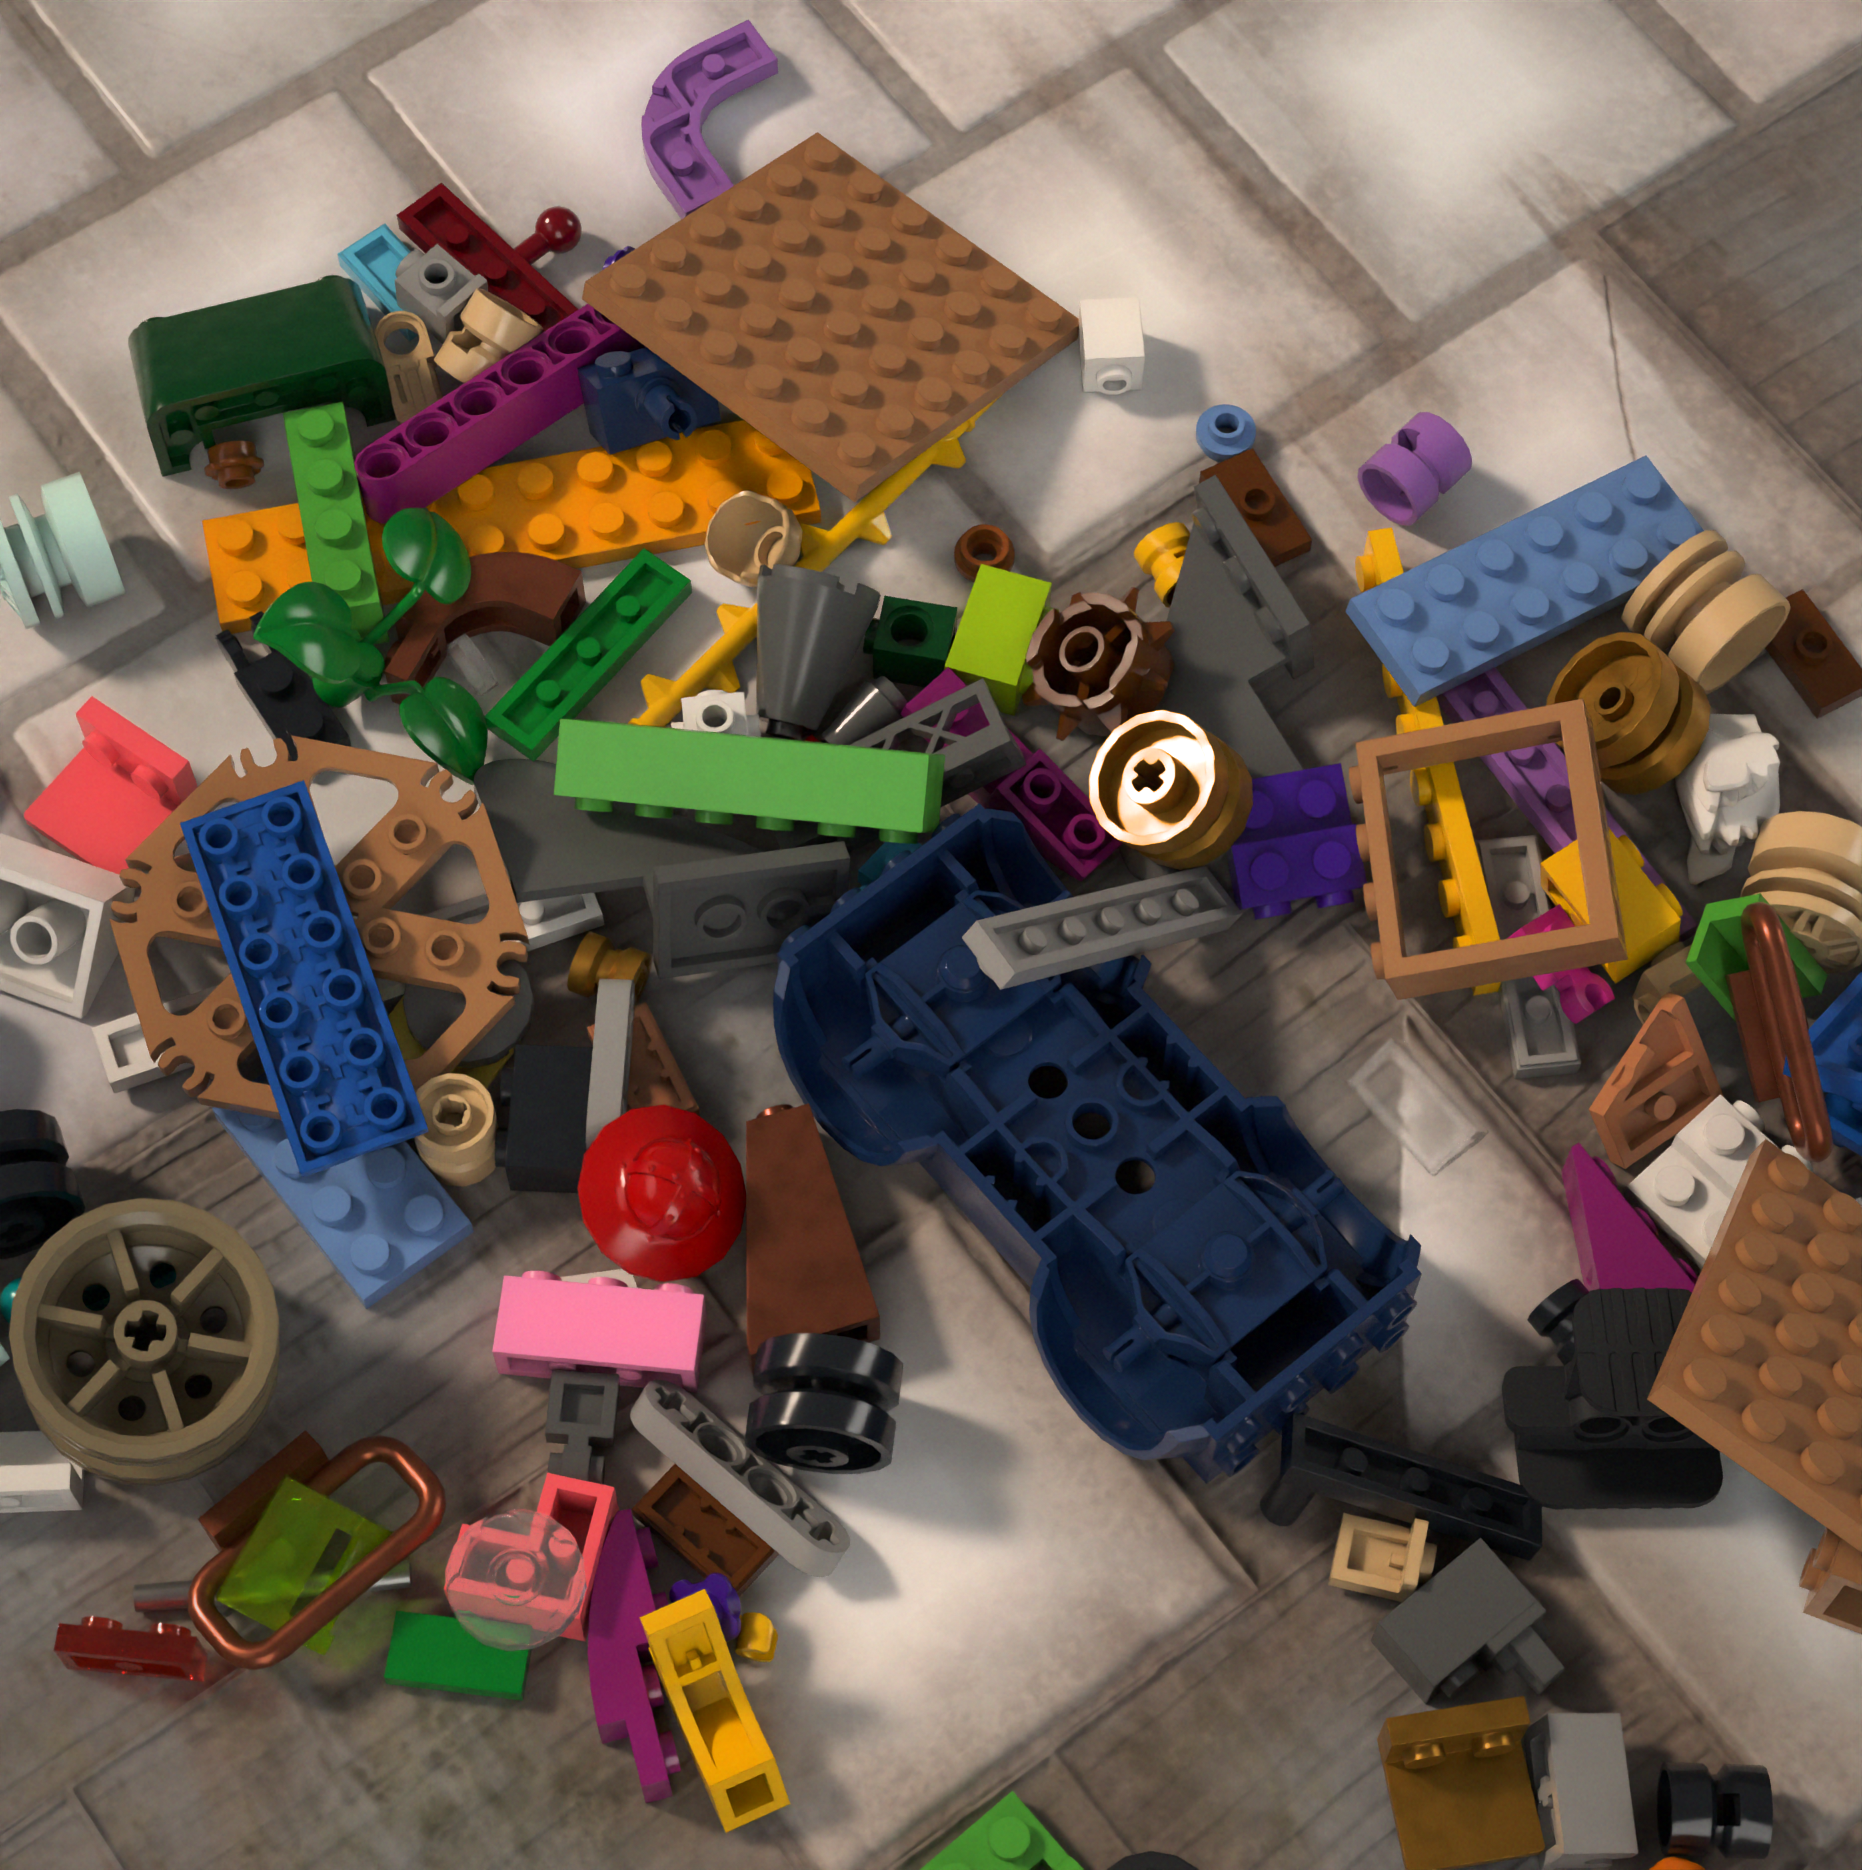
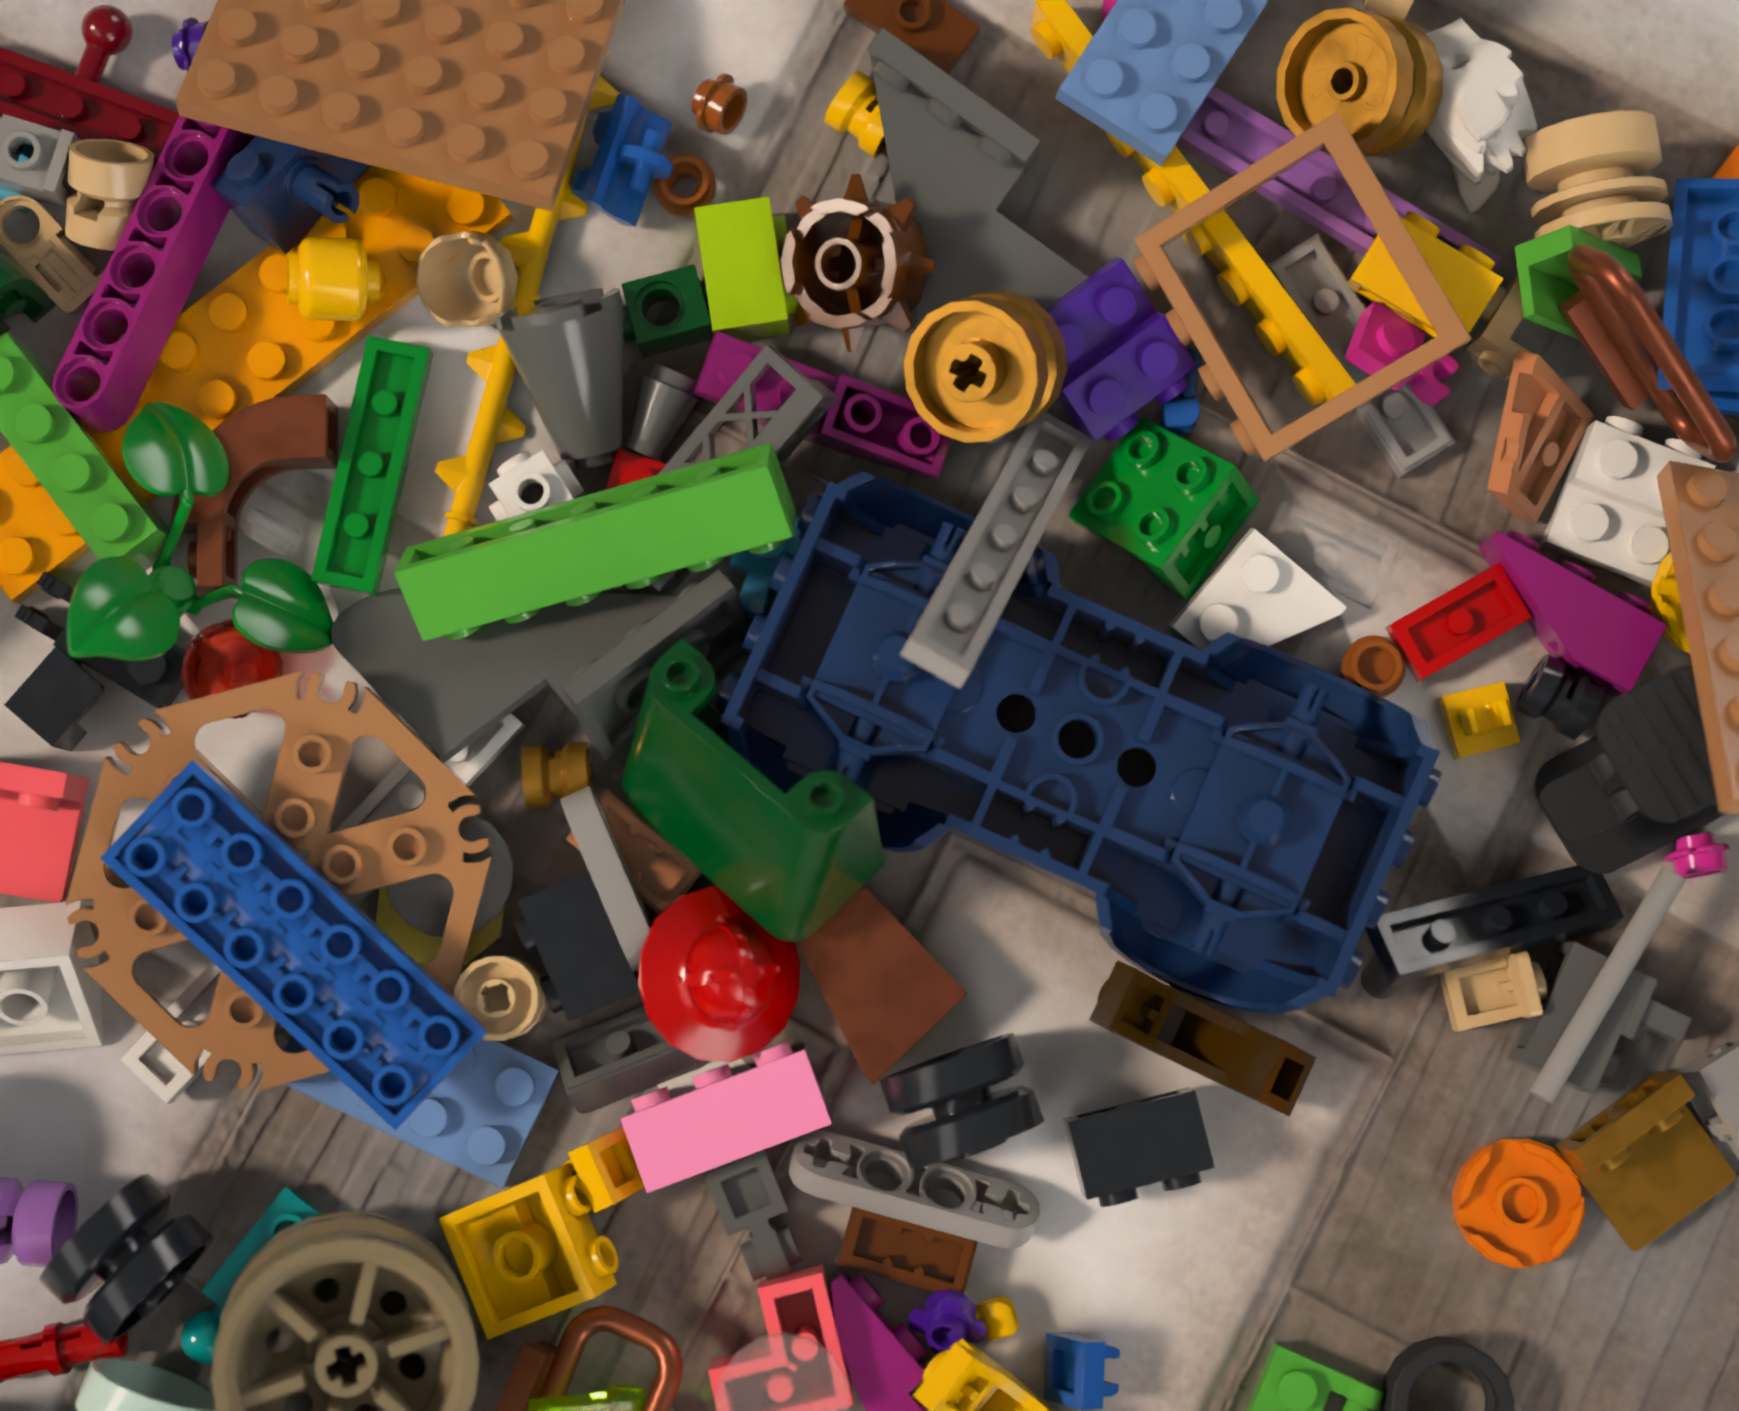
camera: 25 degrees left, 20 degrees up
(211, 709) = (56, 699): none -> black panel
(358, 1361) = (530, 1251): none -> yellow plate
(375, 731) = (225, 660): none -> clear red hair
(464, 1325) = (606, 1169): none -> yellow tile
(531, 1237) = (616, 1060): none -> dark grey slope
(637, 483) = (331, 279): none -> yellow head
(770, 1086) = (771, 852): none -> dark green windscreen
(805, 1715) = (1077, 1370): none -> blue tile
(941, 508) = (626, 160): none -> blue hips
(970, 1532) = (1139, 1146): none -> black brick
(1048, 504) = (719, 105): none -> dark orange plate
(1072, 1463) = (1202, 1038): none -> dark brown arch
(1285, 999) = (1166, 505): none -> green bracket
(1315, 1776) = (1518, 1202): none -> orange tile
(1335, 929) = (1181, 413): none -> blue hand
(1338, 1110) = (1255, 596): none -> white wing
(1414, 1215) = (1374, 665): none -> dark orange plate
(1488, 1318) = (1479, 720): none -> yellow tile
(1491, 1587) = (1607, 985): none -> light grey bar
(1508, 1218) = (1458, 622): none -> red plate
(1644, 1534) = (1698, 856): none -> dark pink plate

